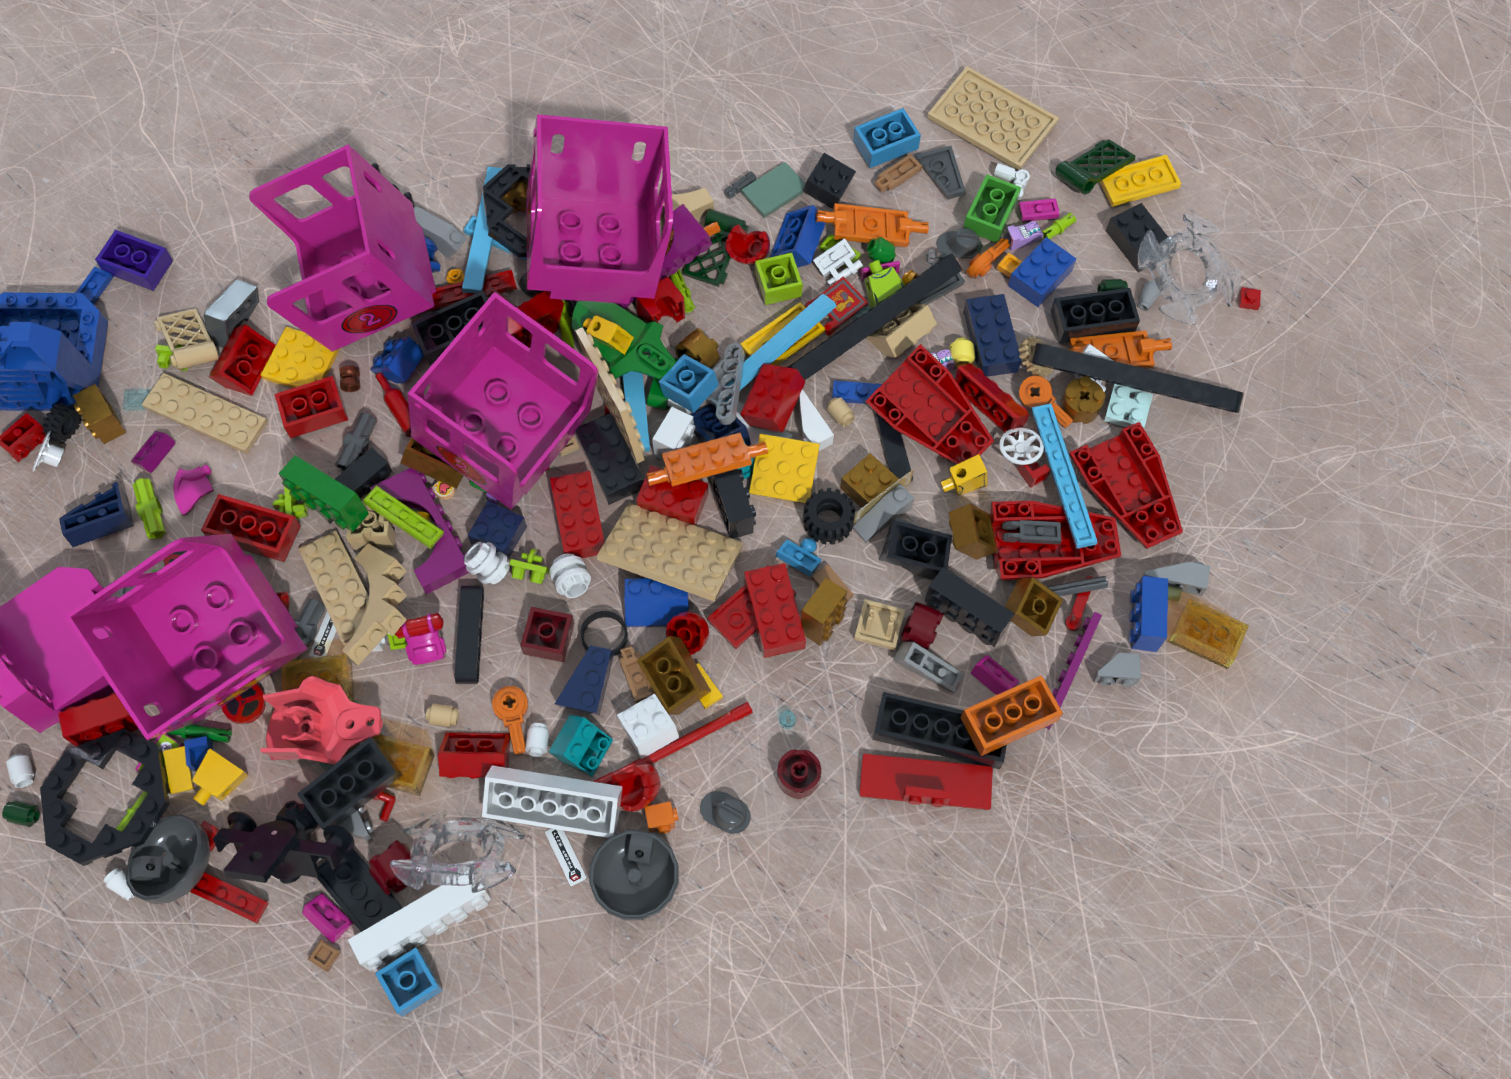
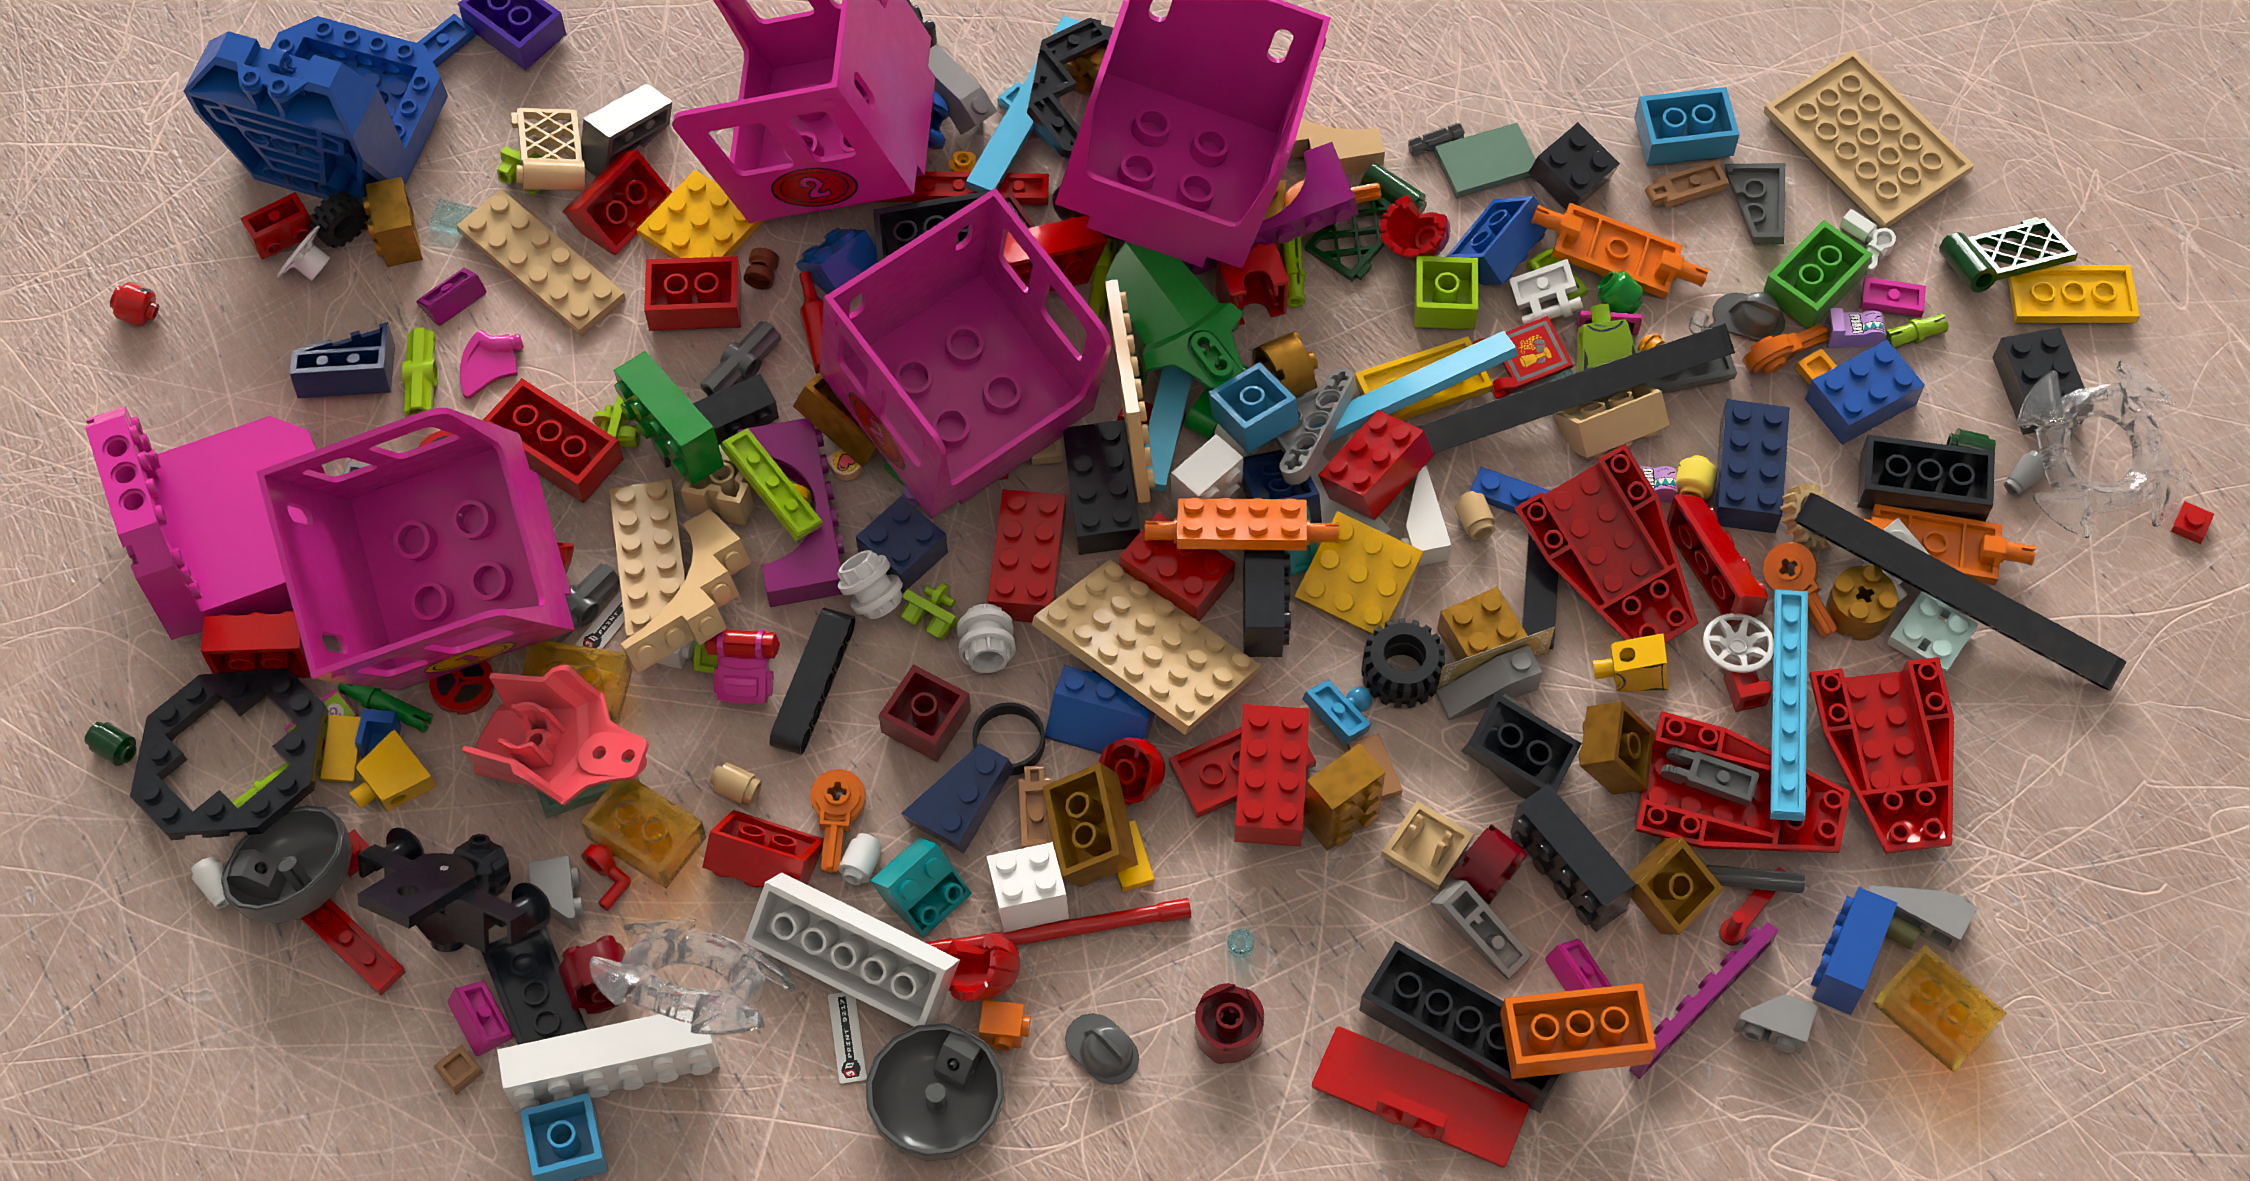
camera: 20 degrees right, 5 degrees down
(20, 770) = (128, 684): white brick -> none
(349, 784) = (572, 833): black brick -> none
(604, 331) = (1147, 293): yellow torso -> none

